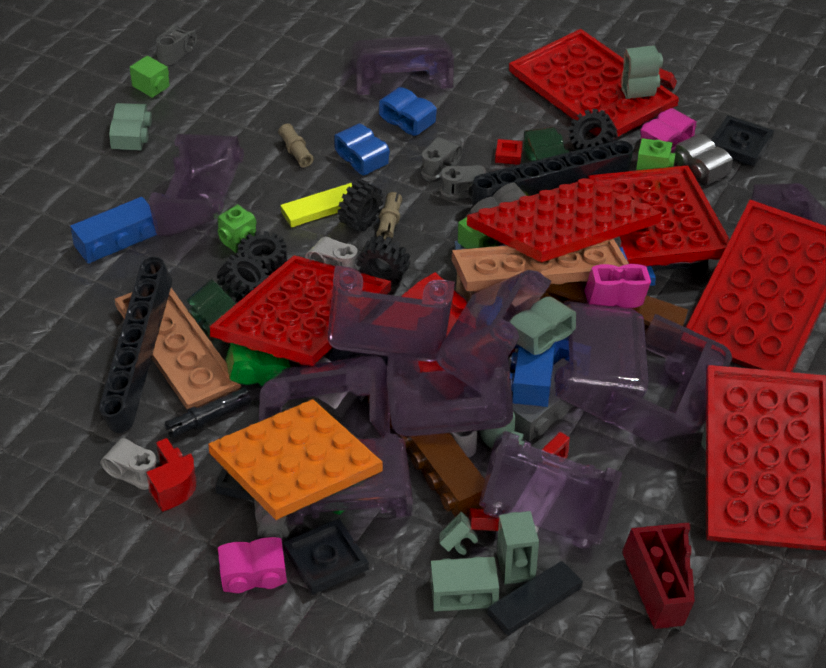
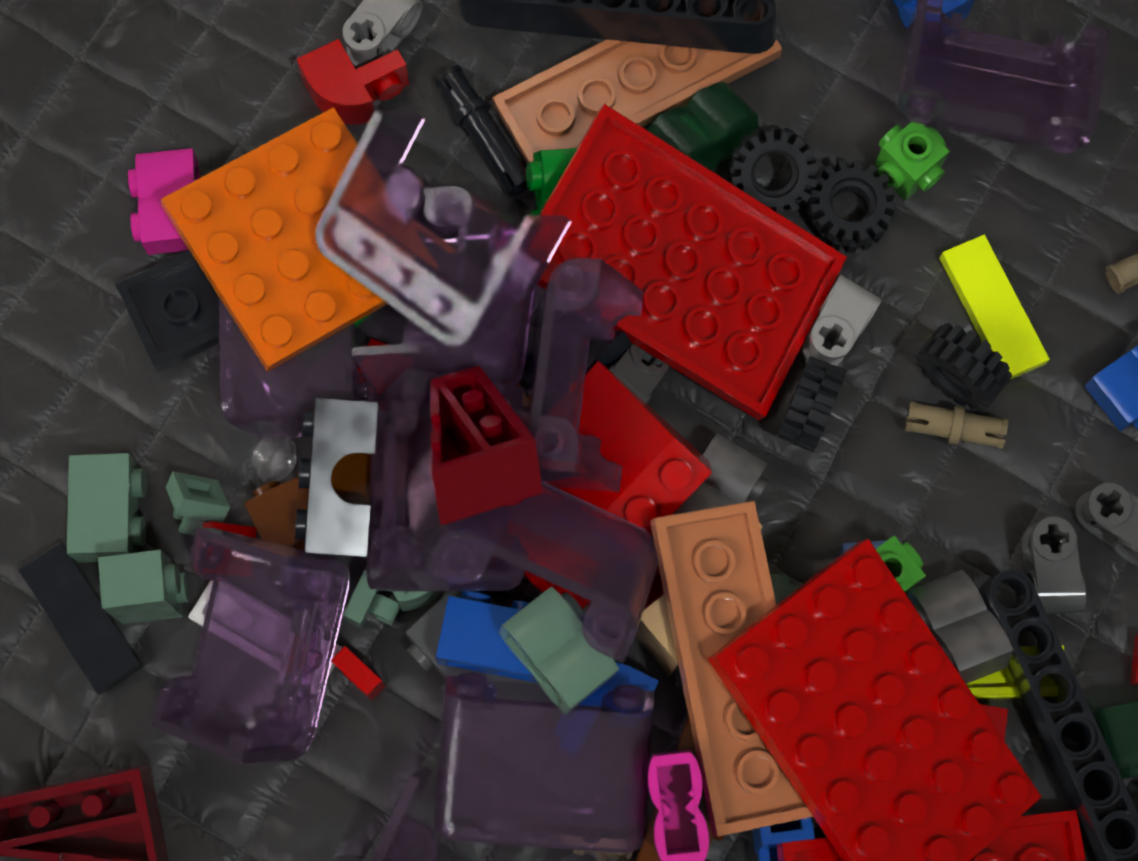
camera: 90 degrees right, 30 degrees up
(345, 352) = (379, 243): none -> clear purple windscreen
(423, 438) = (330, 521): none -> arch
(425, 500) = (274, 458): none -> clear plate
(435, 337) = (478, 448): none -> dark red wedge

